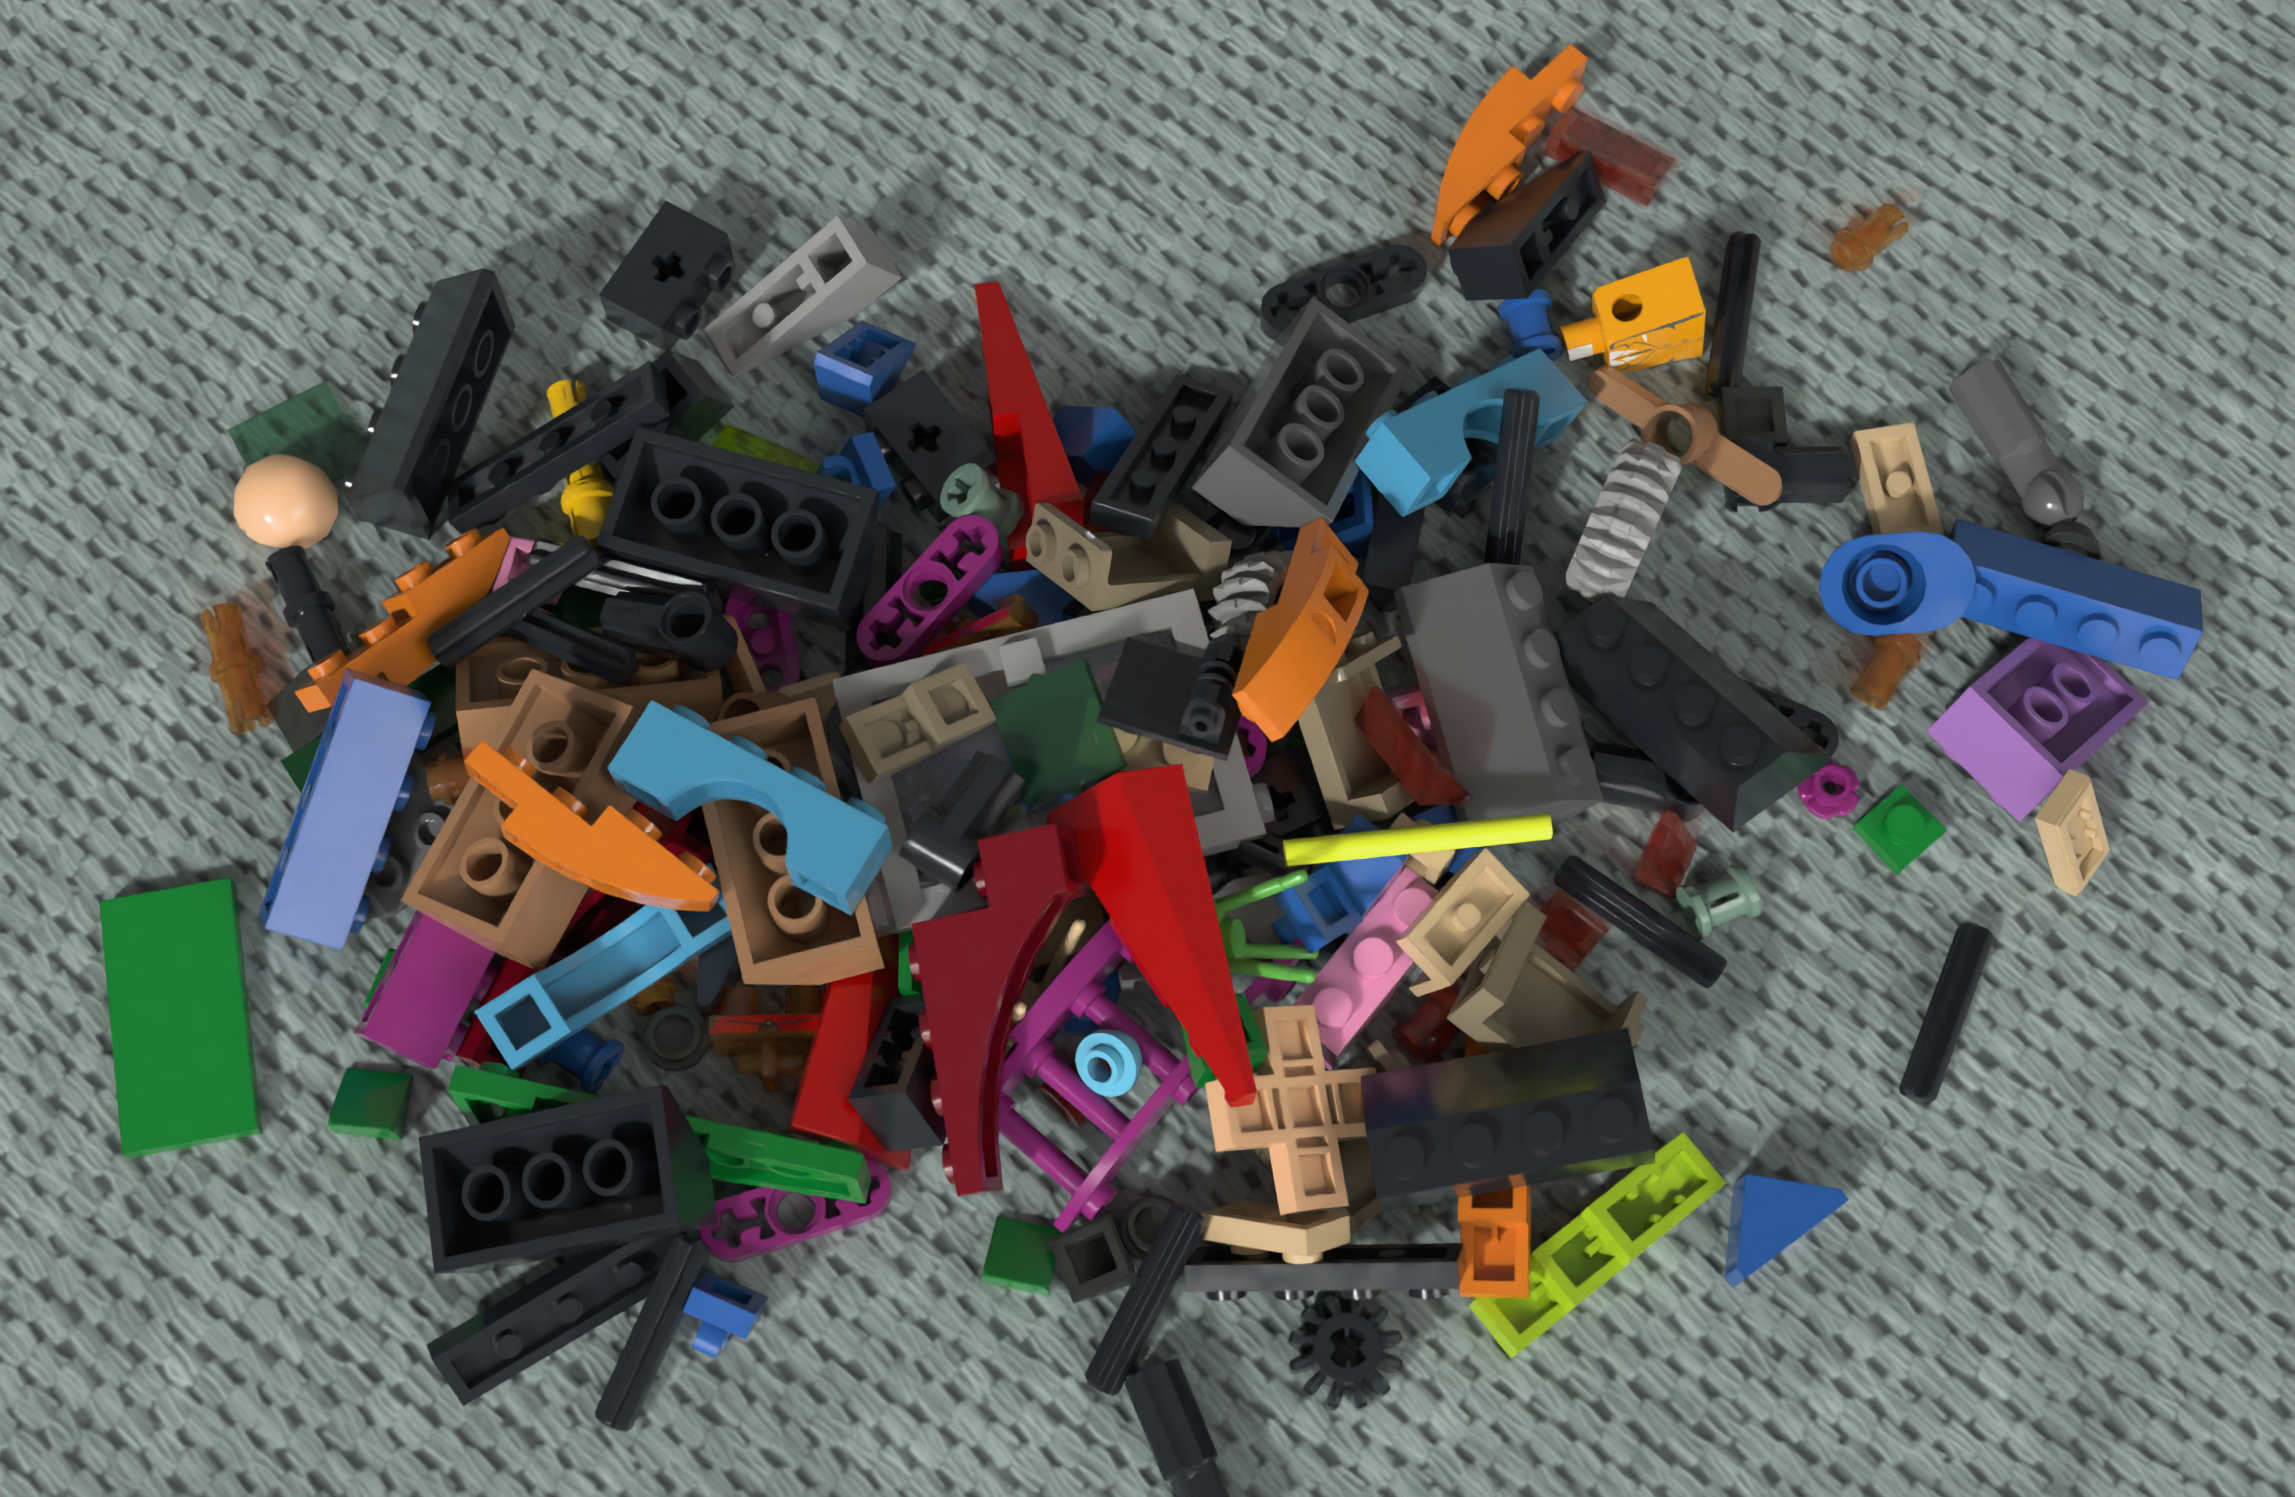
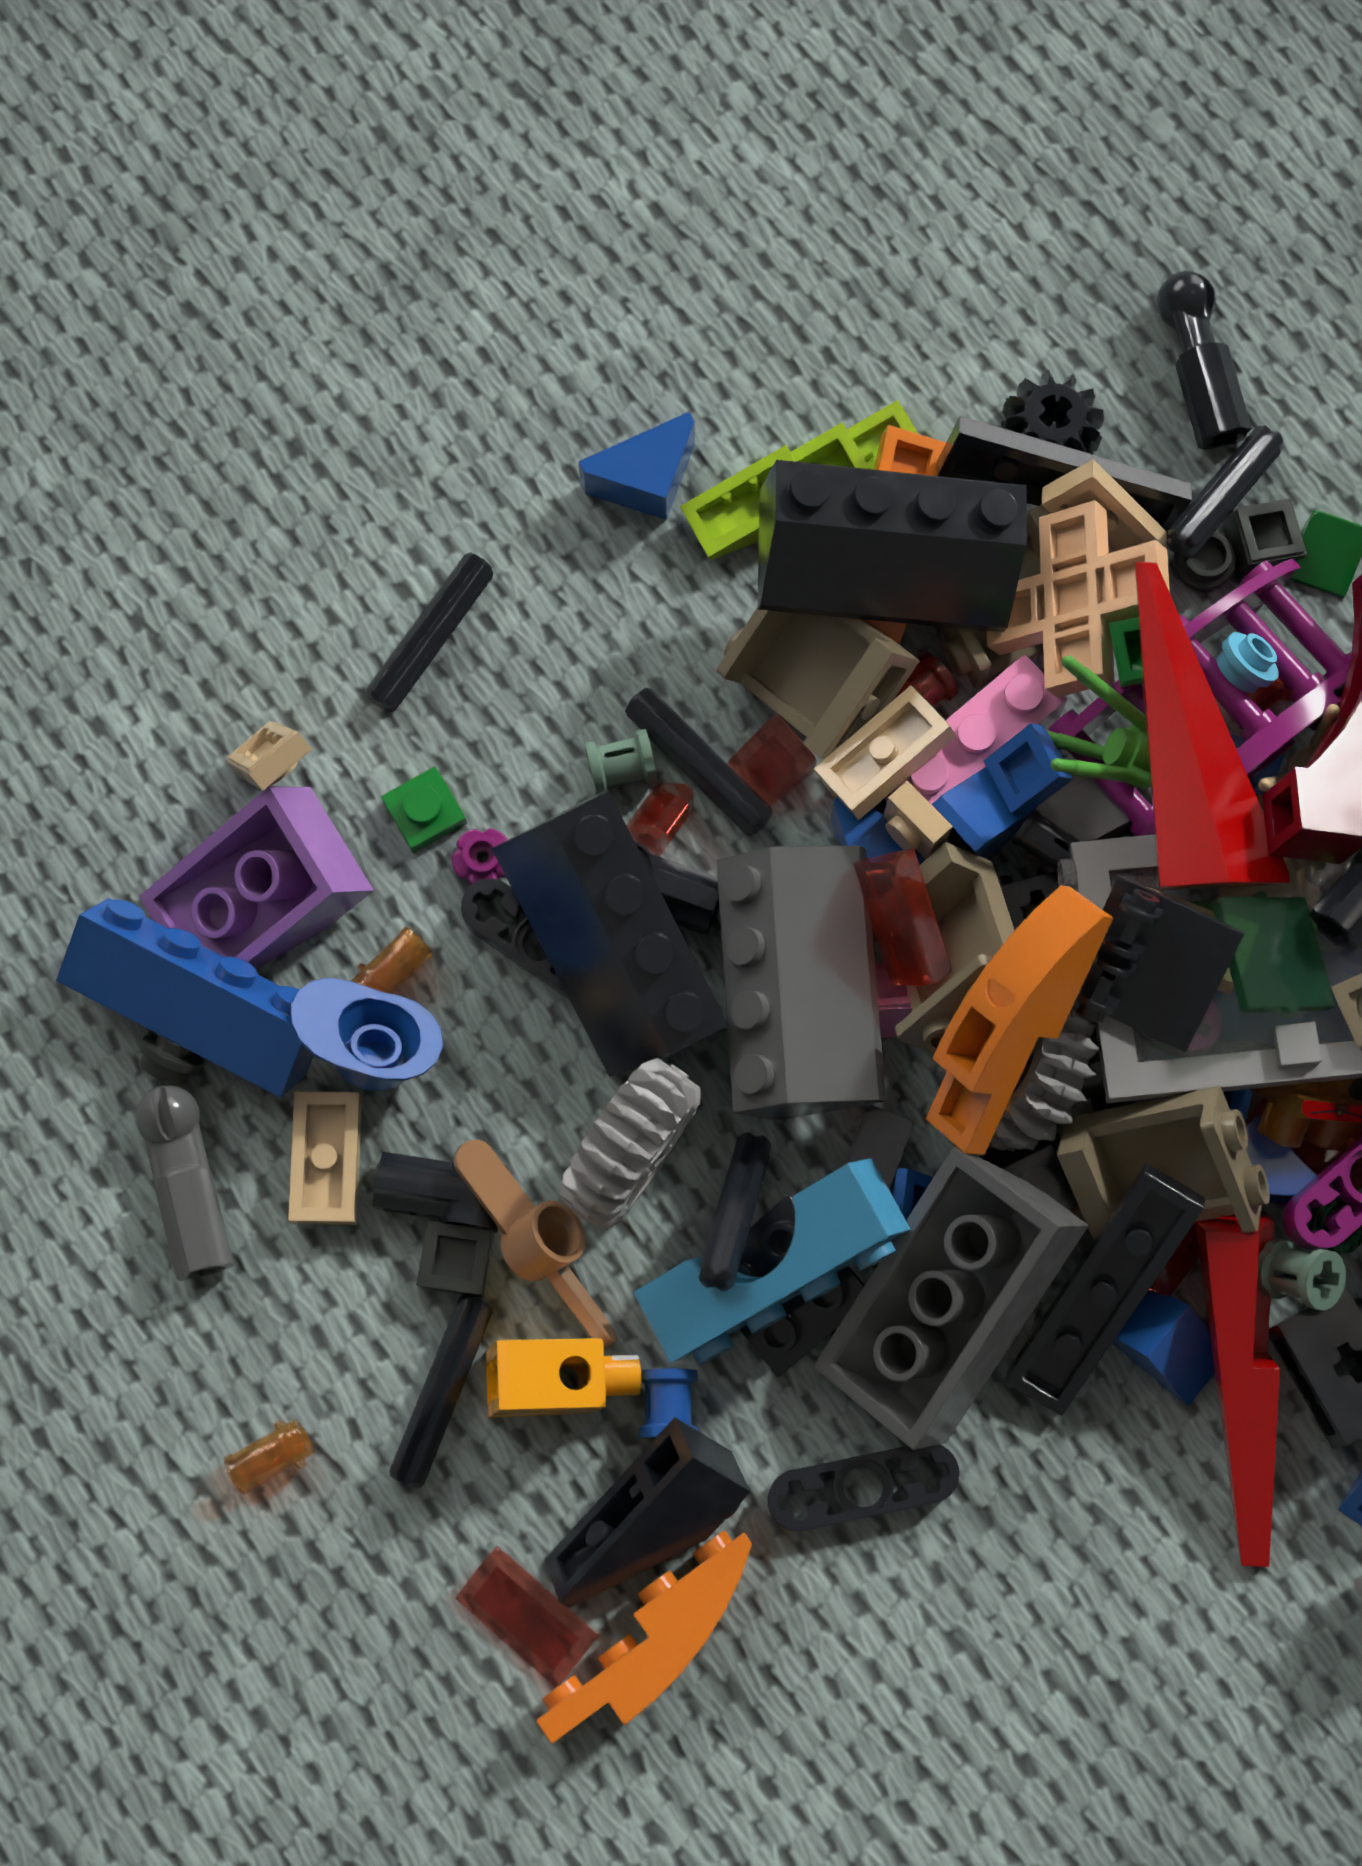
camera: 165 degrees left, 5 degrees up
(1417, 839) = (926, 807): neon yellow bar -> none

